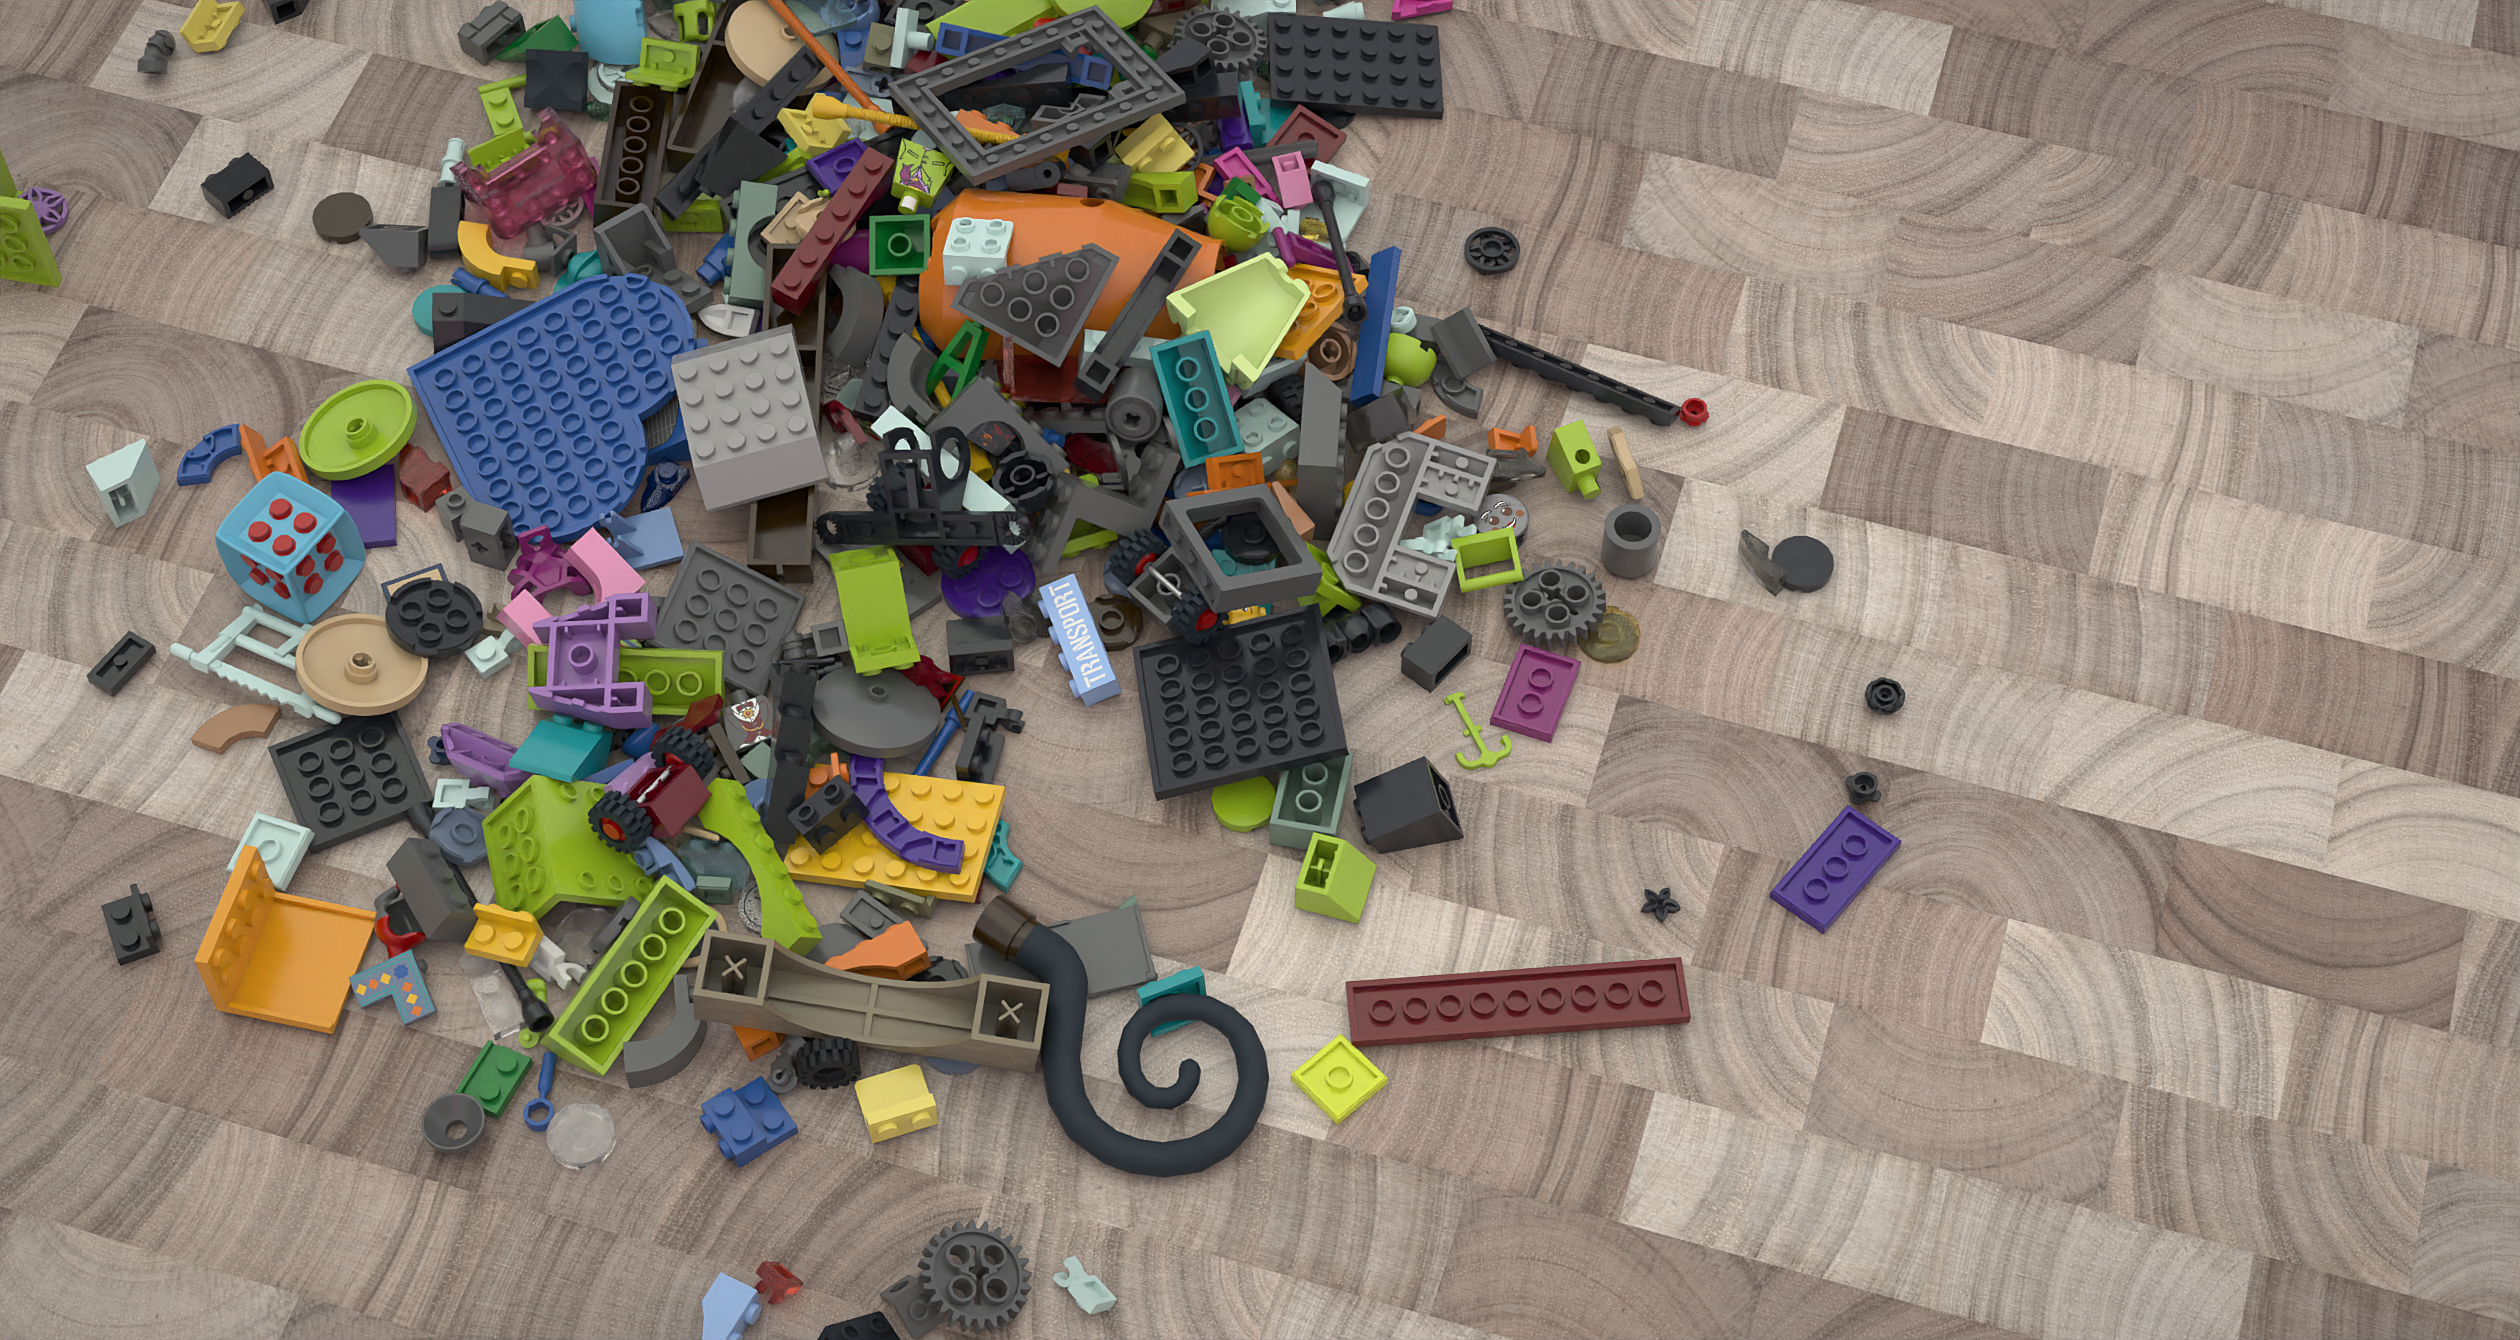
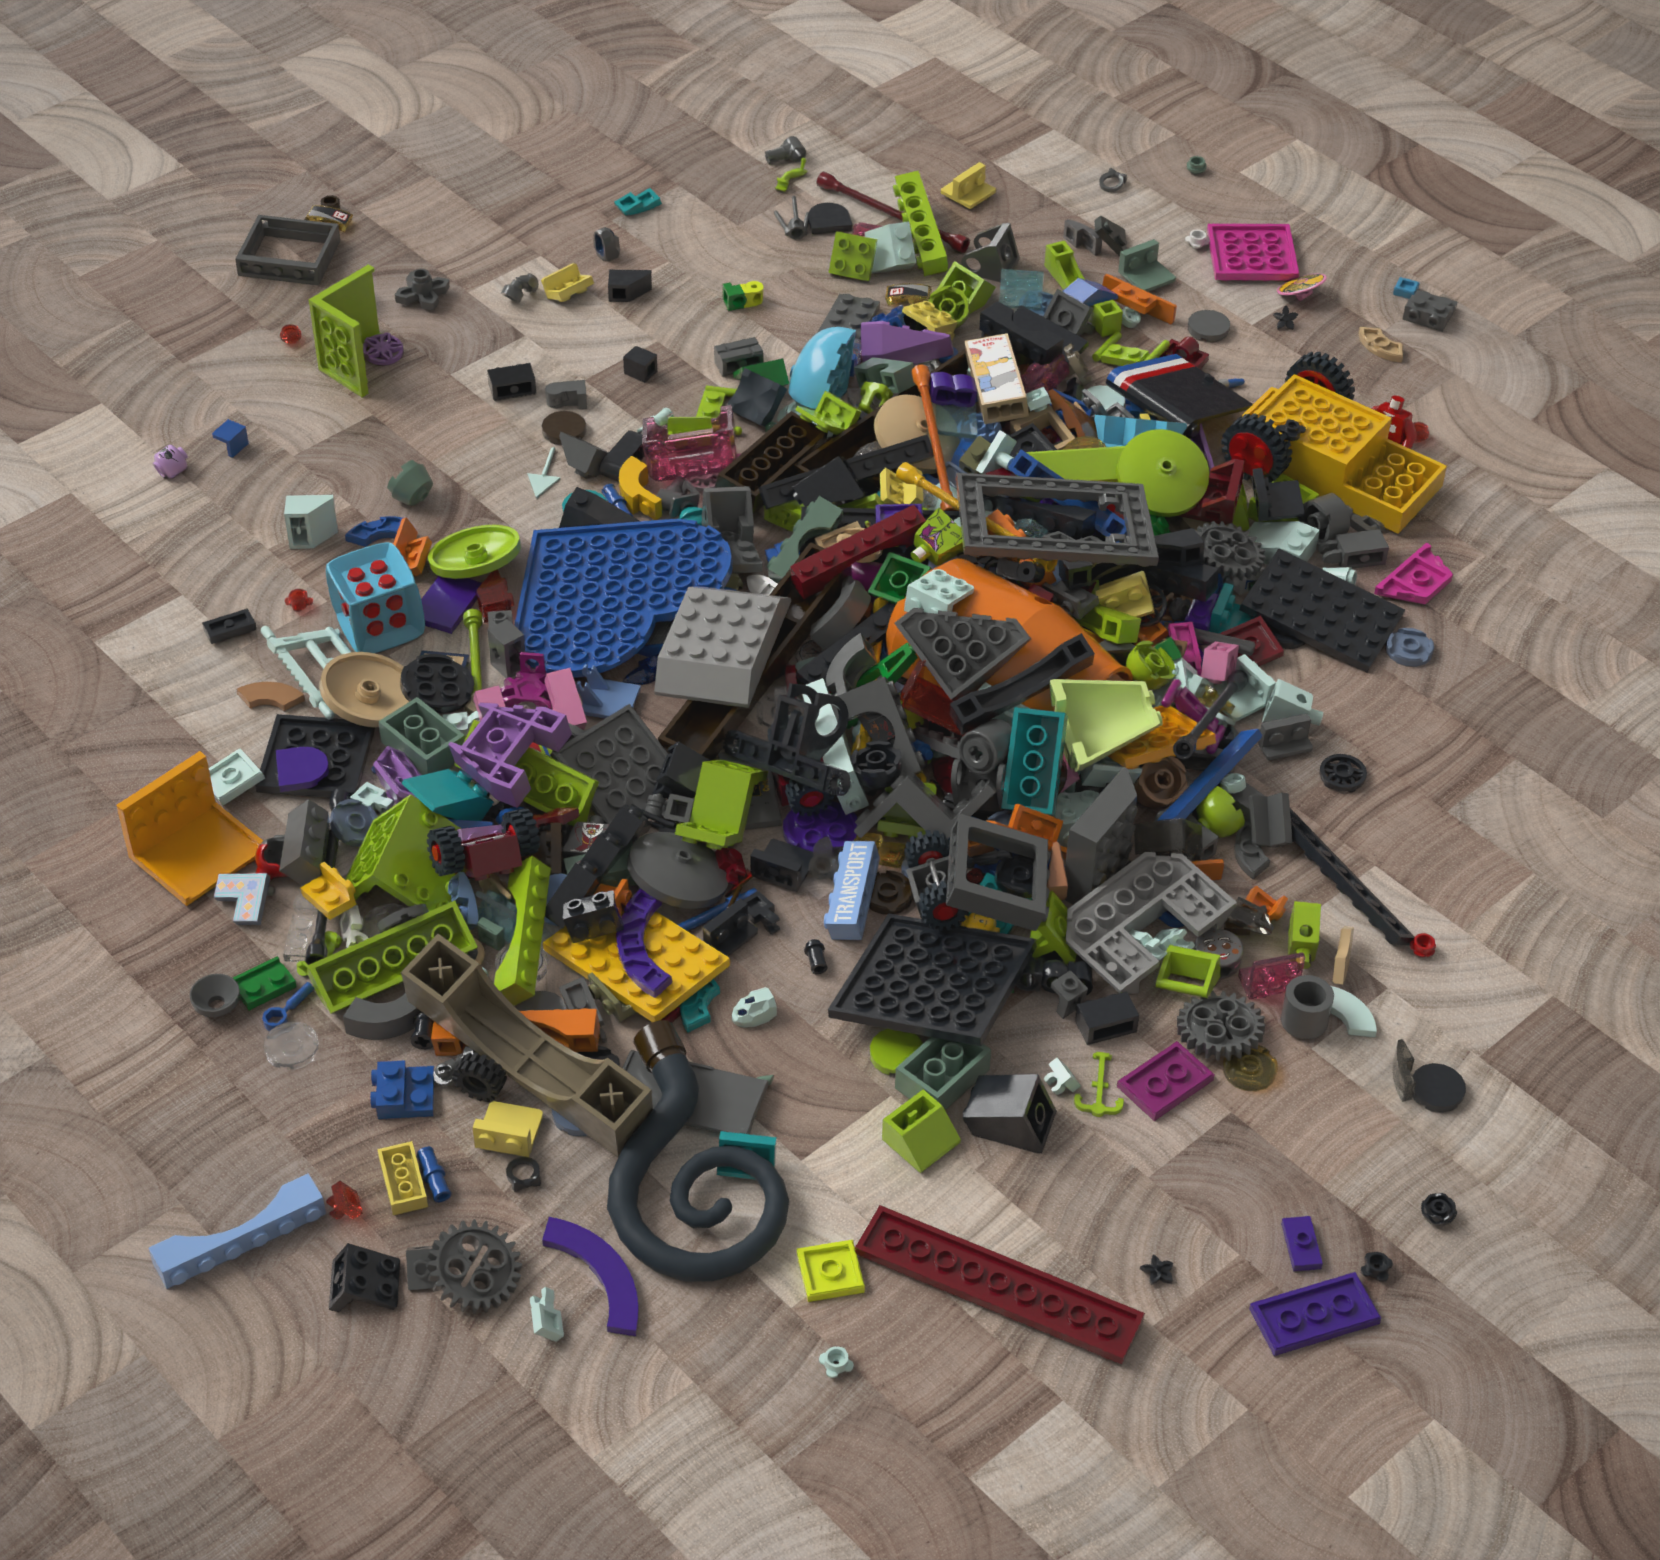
camera: 30 degrees right, 10 degrees down
(32, 107) = (422, 288): none -> dark grey plant
(131, 928) = (116, 782): black bracket -> none
(176, 585) = (298, 600): none -> clear red plate
(217, 377) = (411, 484): none -> sand green cone
(318, 172) = (566, 394): none -> dark grey leg
(349, 800) = (300, 768): none -> dark purple tile
(364, 301) = (542, 482): none -> light aqua piece
(379, 93) = (640, 364): none -> black panel
(415, 518) = (473, 620): none -> lime piece
(468, 692) = (421, 736): none -> sand green brick
(722, 1042) = (423, 1031): none -> black bush
(803, 596) = (679, 772): none -> black plate
(821, 1220) = (402, 1178): none -> light yellow piece
(851, 1198) = (433, 1174): none -> blue pin
(948, 1160) = (518, 1184): none -> black piece
(1065, 828) = (755, 1009): none -> light aqua rock
(1082, 730) = (814, 950): none -> black pin
(1088, 573) = (890, 853): none -> clear yellow slope
(1106, 1199) = (605, 1265): none -> dark purple tile
(1384, 642) = (1070, 992): none -> dark grey bracket
(1396, 203) = (1288, 702): none -> light aqua torso
(1412, 1164) = (836, 1354): none -> light aqua plate
(1415, 237) = (1285, 737): none -> dark grey bracket
(1434, 741) = (1063, 1076): none -> light aqua tile
(1467, 68) = (1409, 647): none -> sand blue tile
(1570, 523) = (1271, 975): none -> clear pink bracket
(1677, 524) = (1353, 1014): none -> light aqua tile
(1777, 801) = (1301, 1243): none -> dark purple plate

